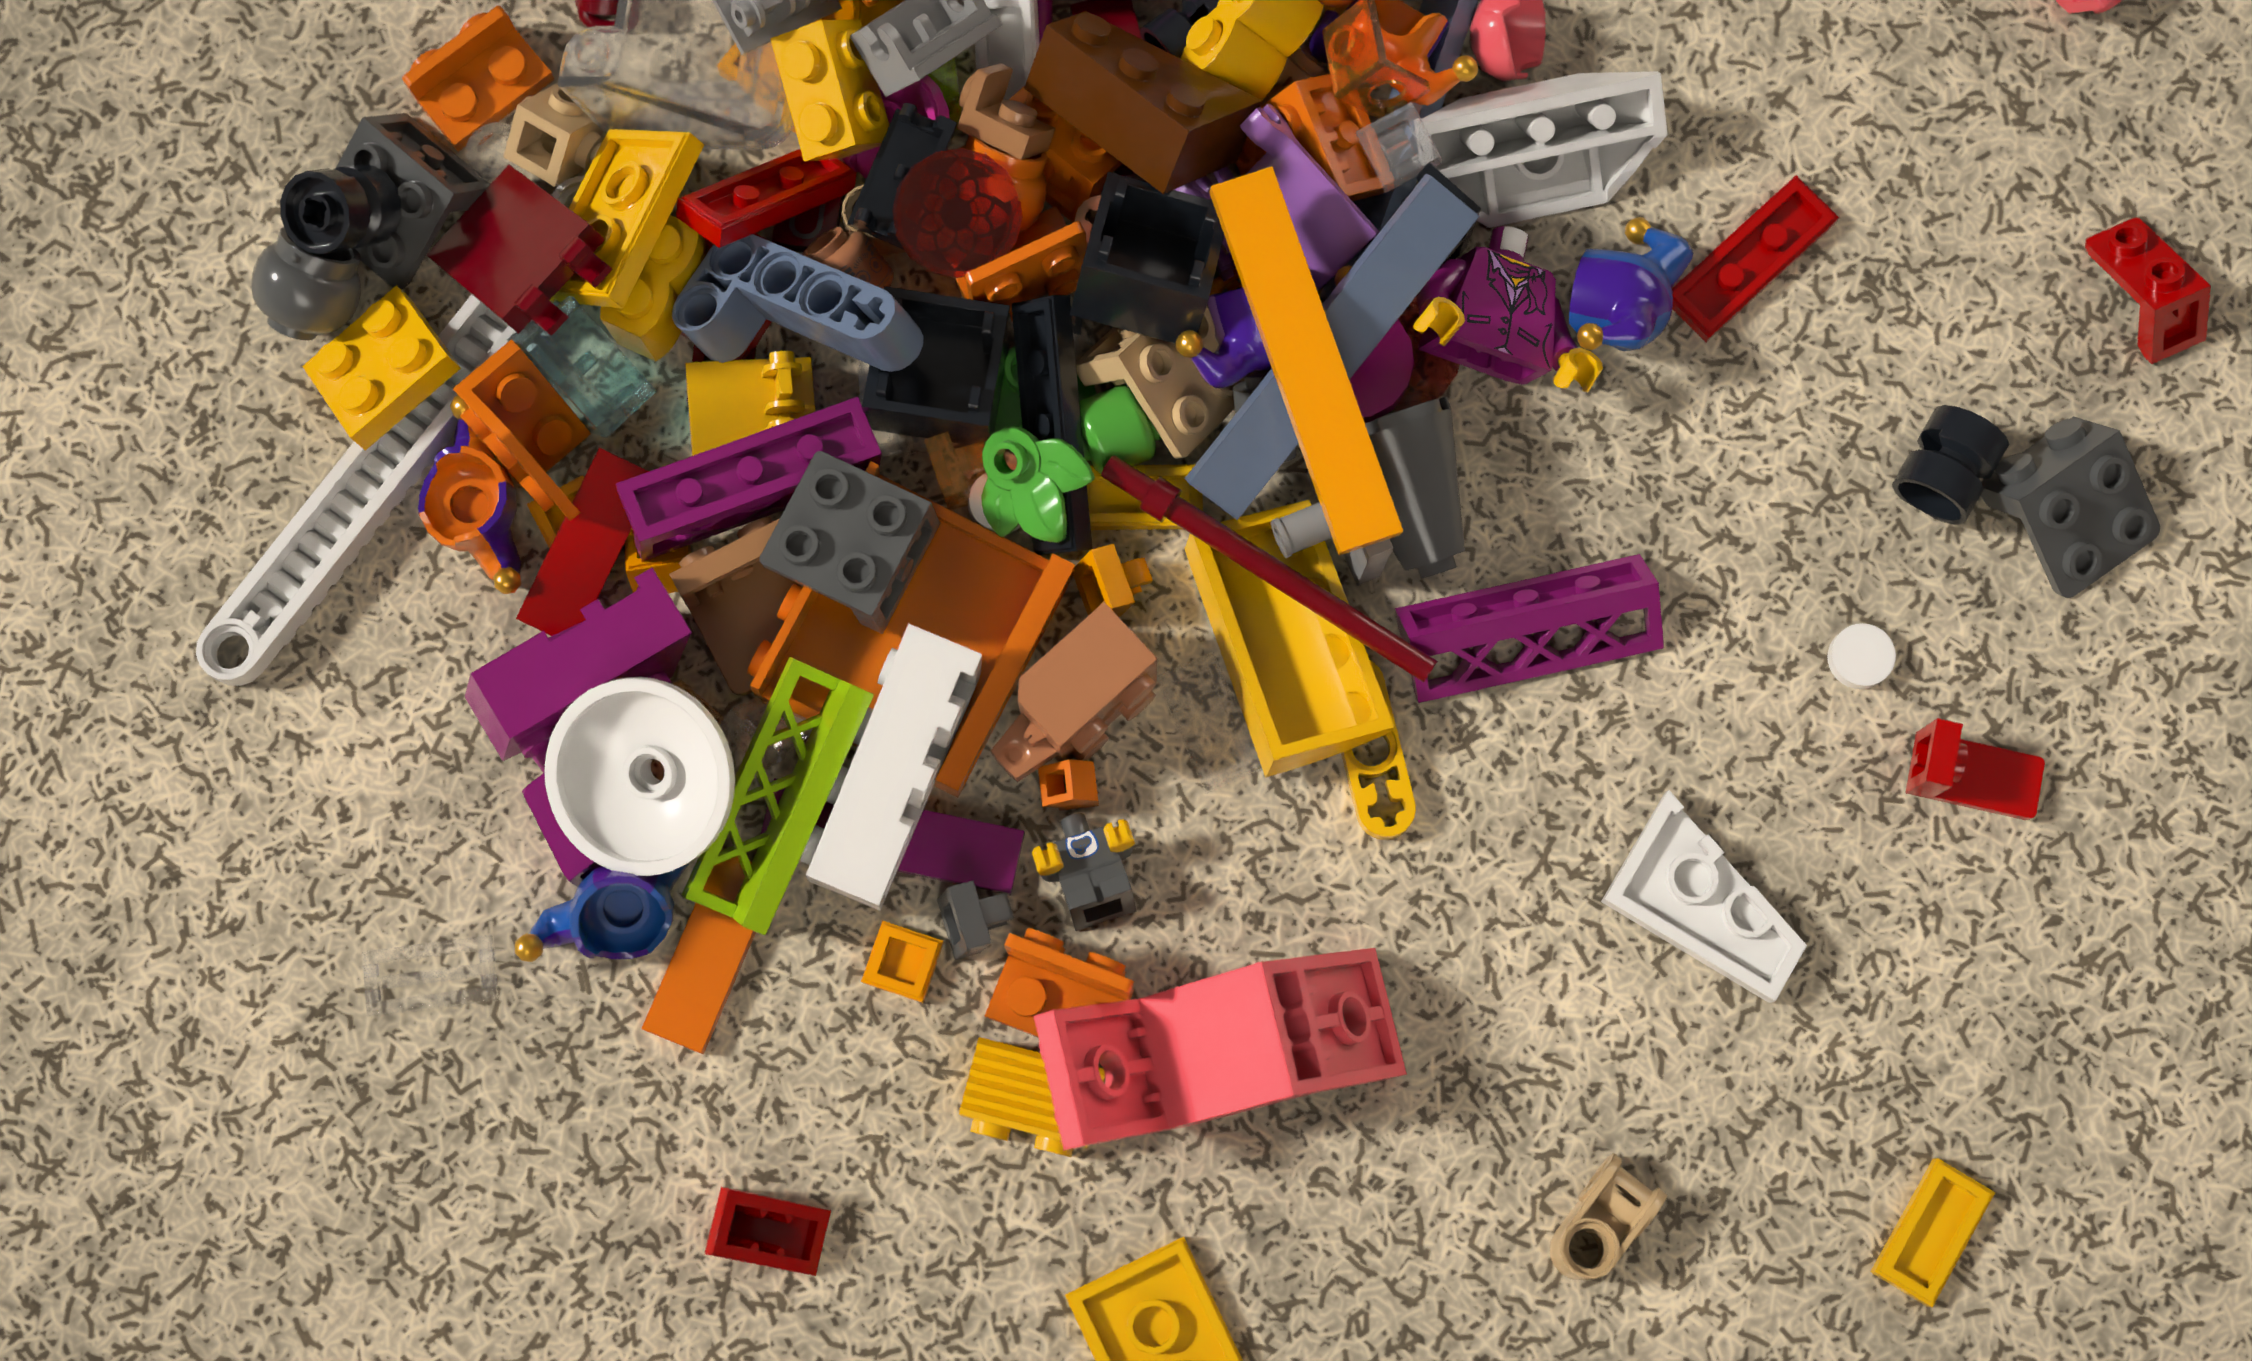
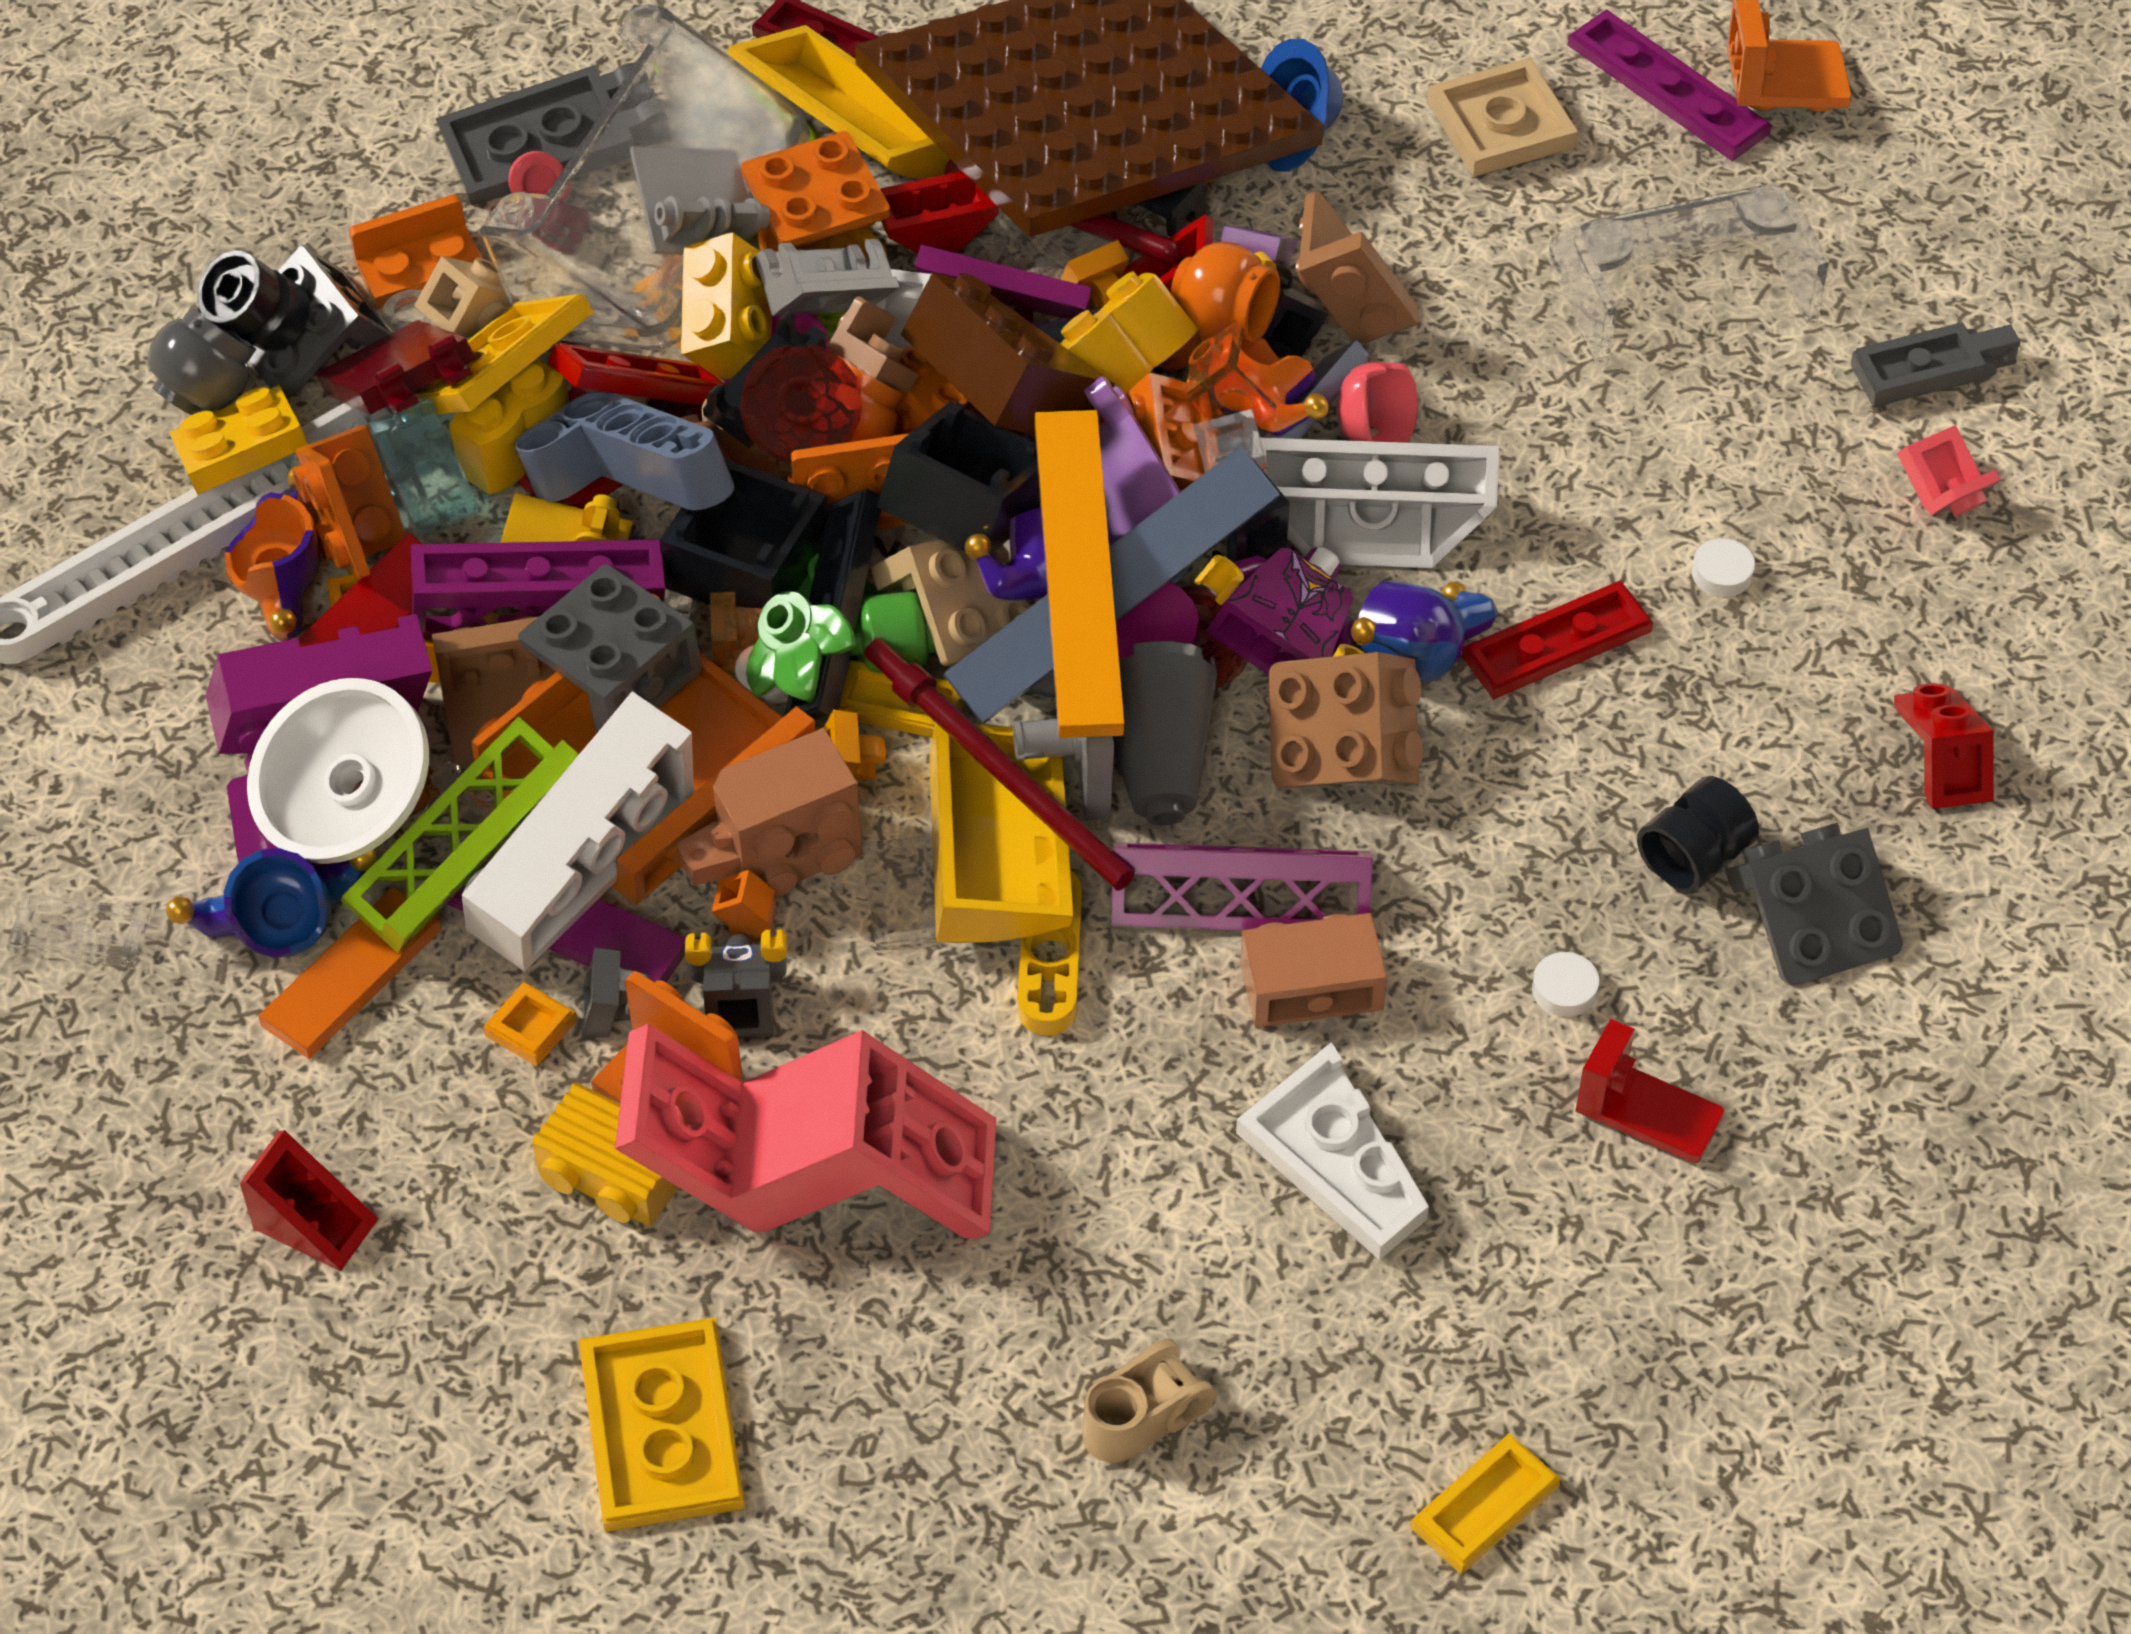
camera: 15 degrees right, 25 degrees down
(1586, 429) = (1345, 720): none -> medium nougat bracket
(1627, 710) = (1313, 969): none -> nougat brick
(1888, 131) = (1723, 567): none -> white tile

